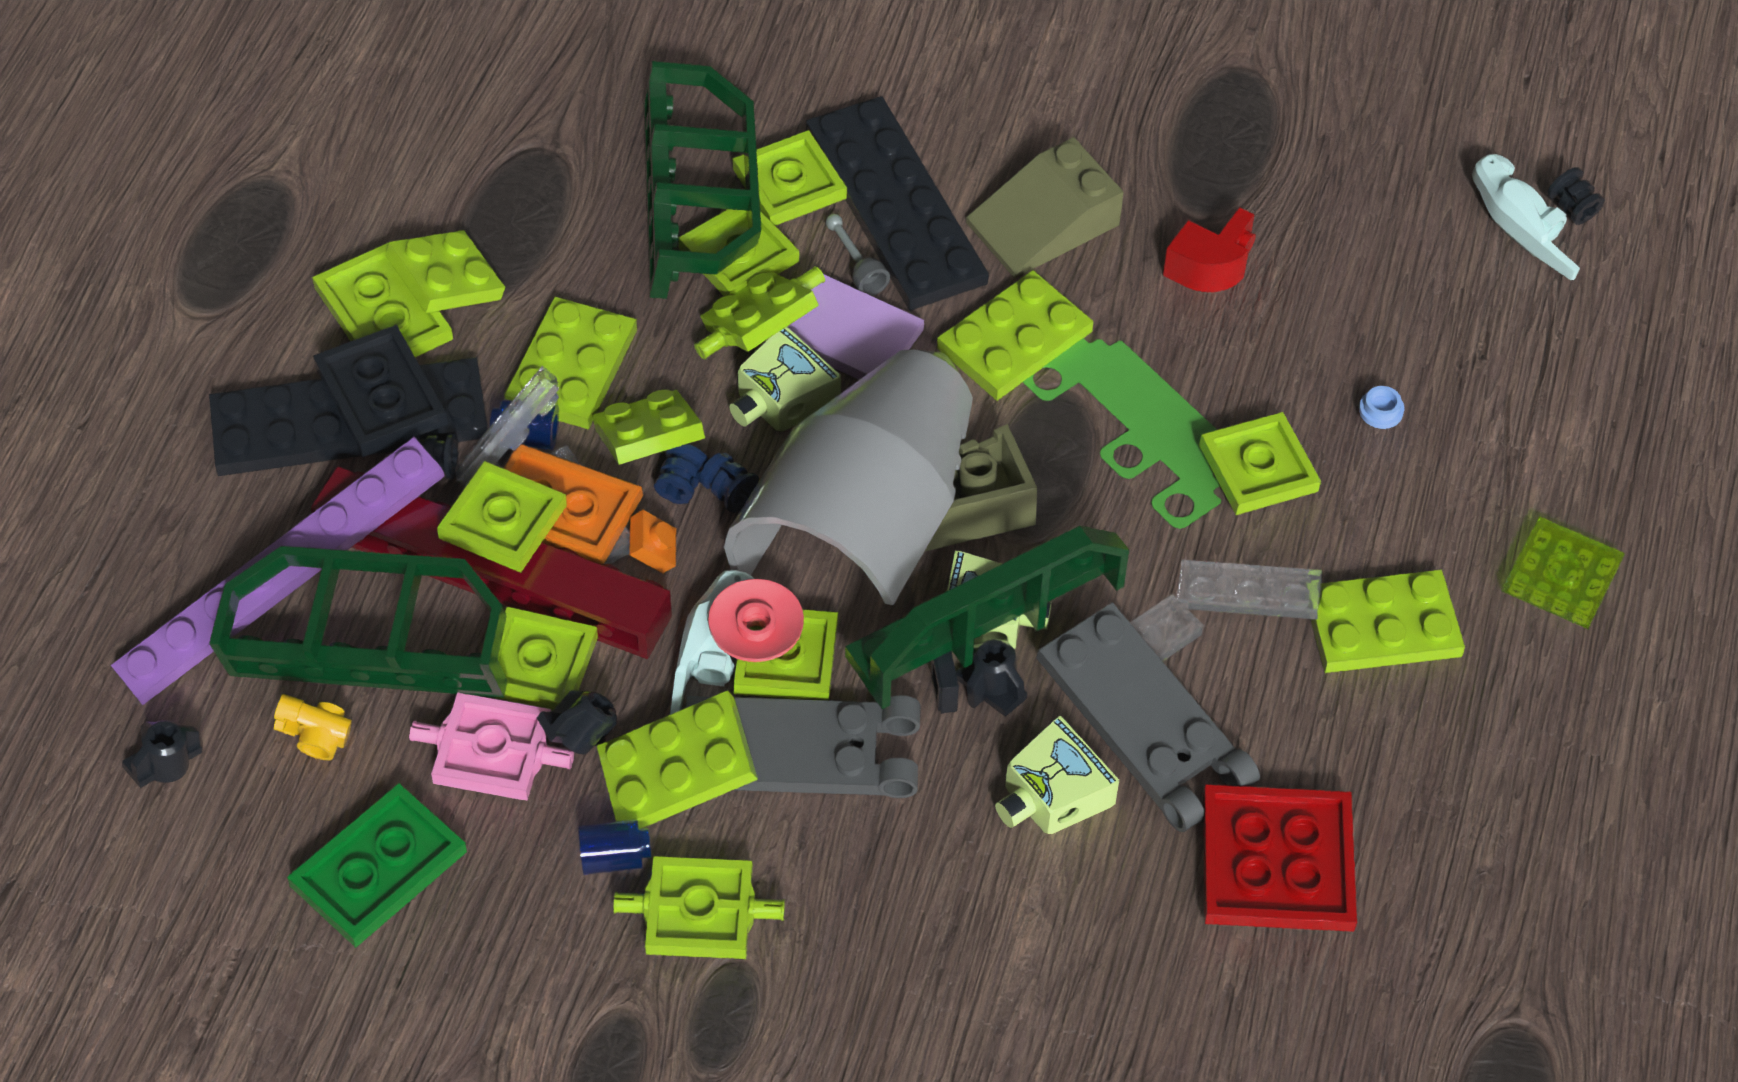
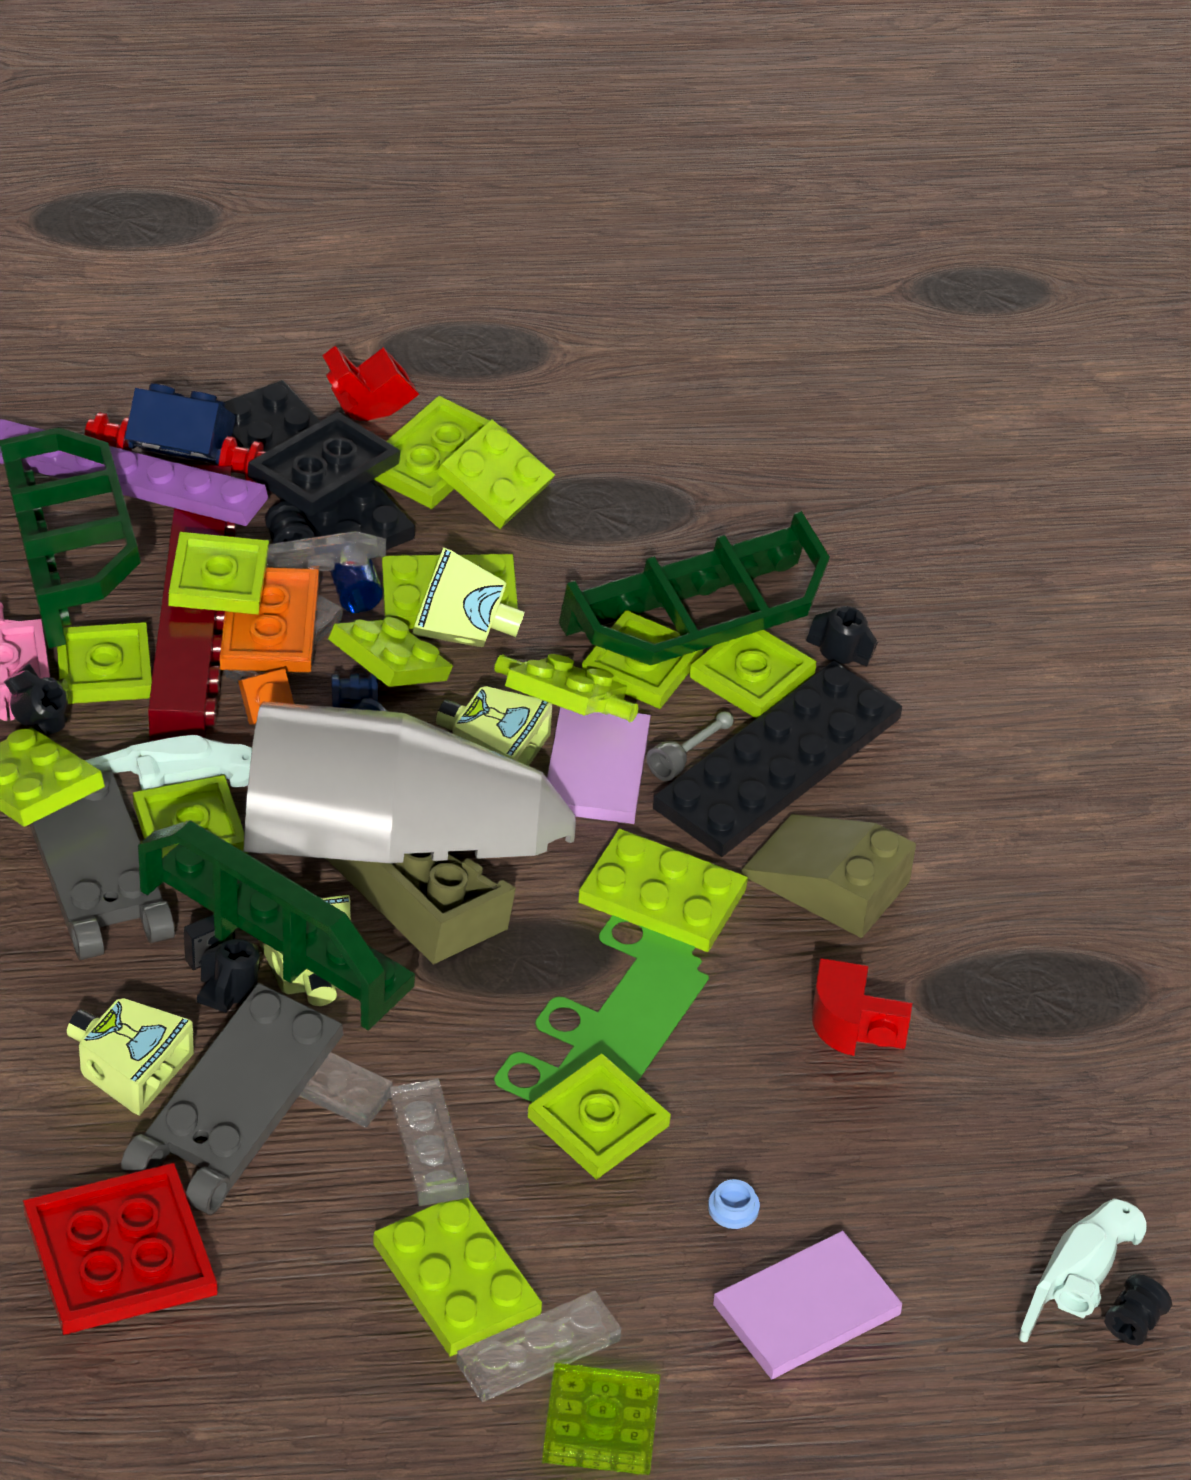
camera: 65 degrees right, 10 degrees down
(263, 491) = (177, 427): none -> dark blue brick
(267, 324) = (371, 389): none -> red brick
(621, 349) = (464, 604): none -> yellowish green torso
(756, 604) = (194, 774): coral dish -> none
(781, 101) = (843, 636): none -> black piece
(1478, 590) = (537, 1344): none -> clear plate
(1495, 398) = (807, 1304): none -> lavender tile

